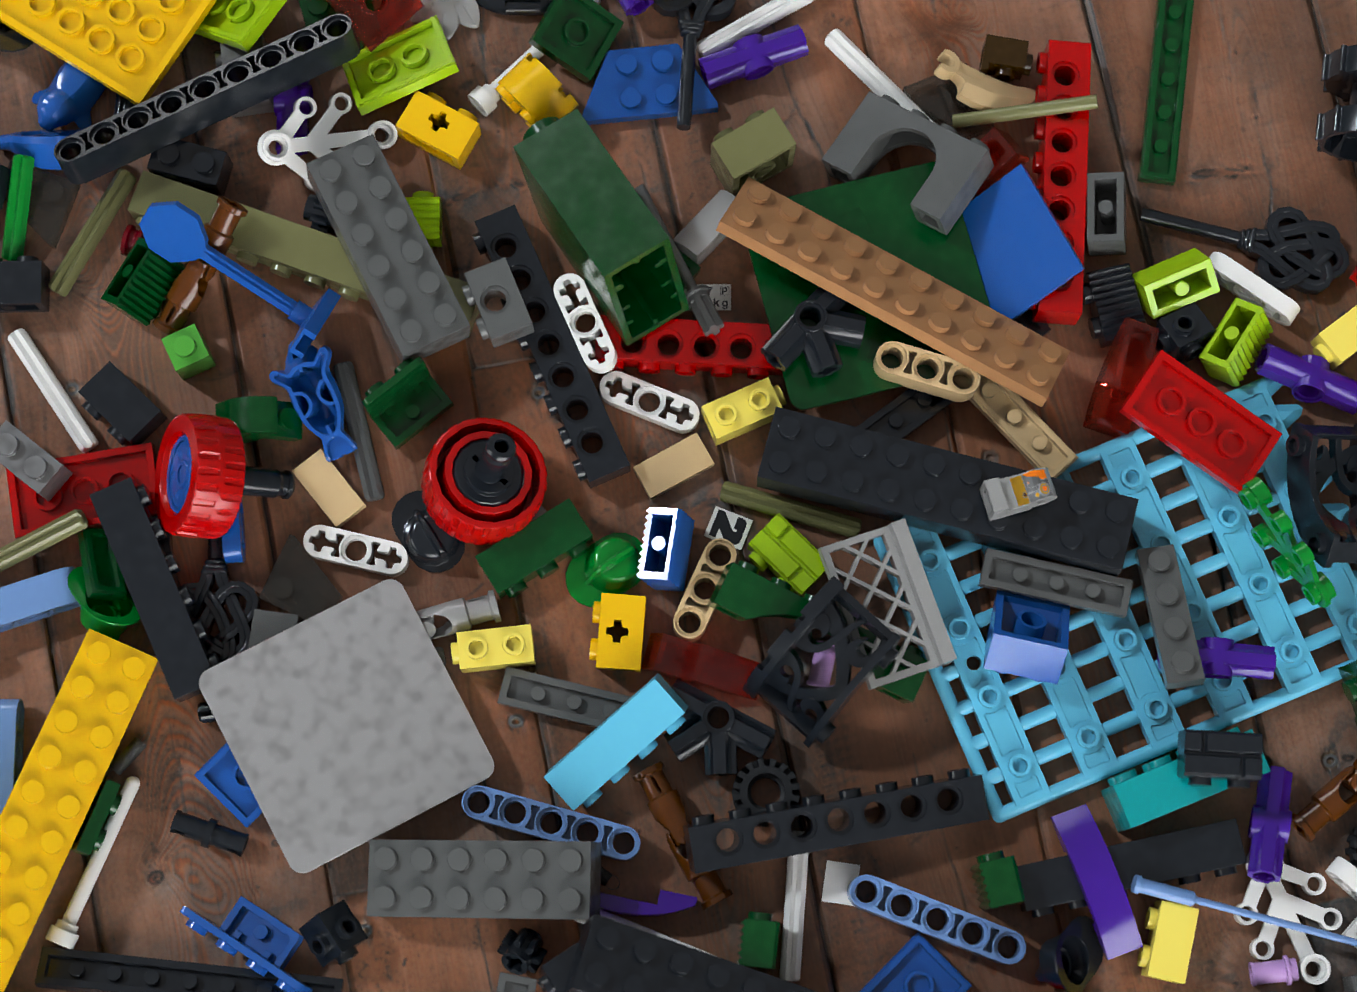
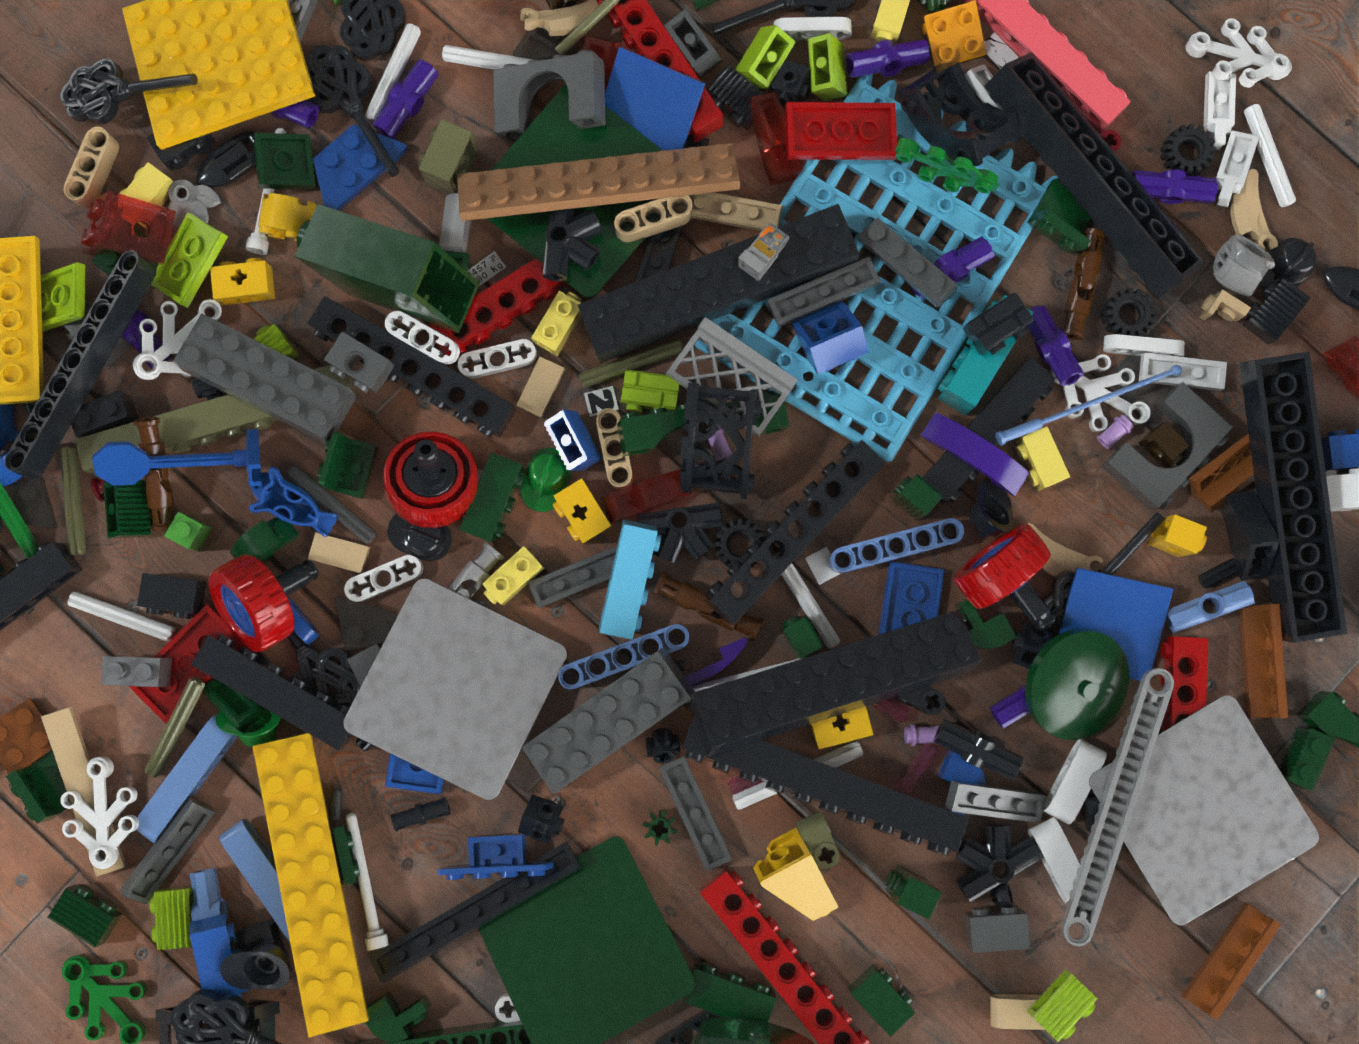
camera: 30 degrees left, 5 degrees up
(696, 296) = (482, 272): dark grey piece -> none

